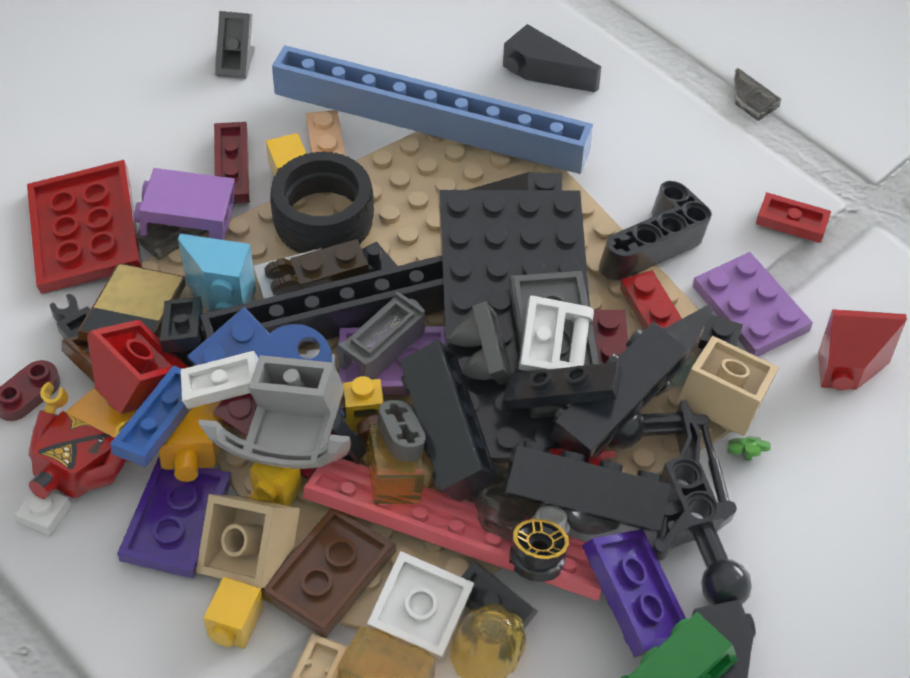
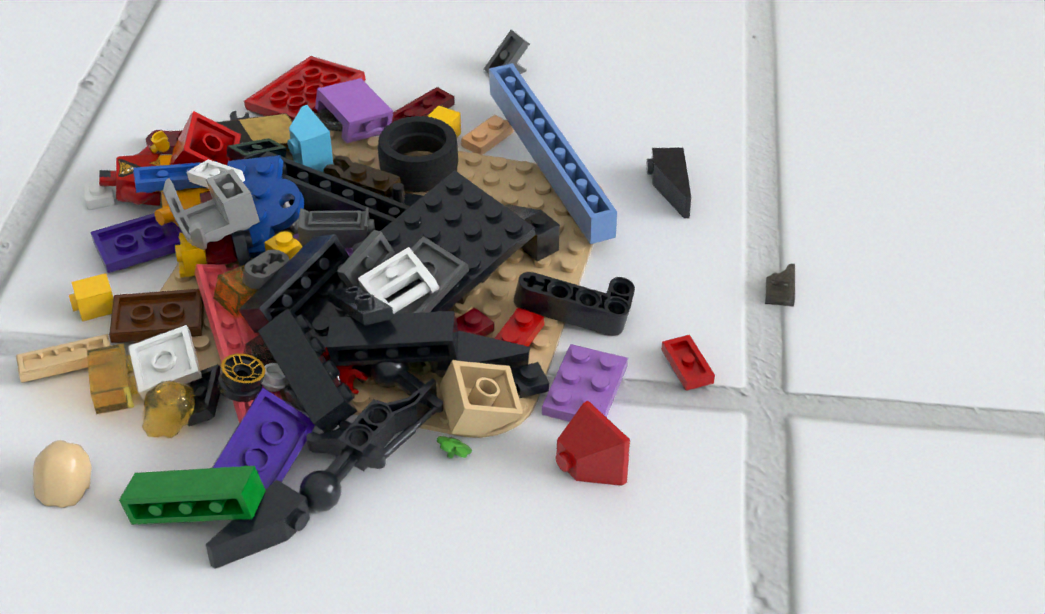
camera: 50 degrees right, 10 degrees down
(246, 538) = (145, 267): tan slope -> none

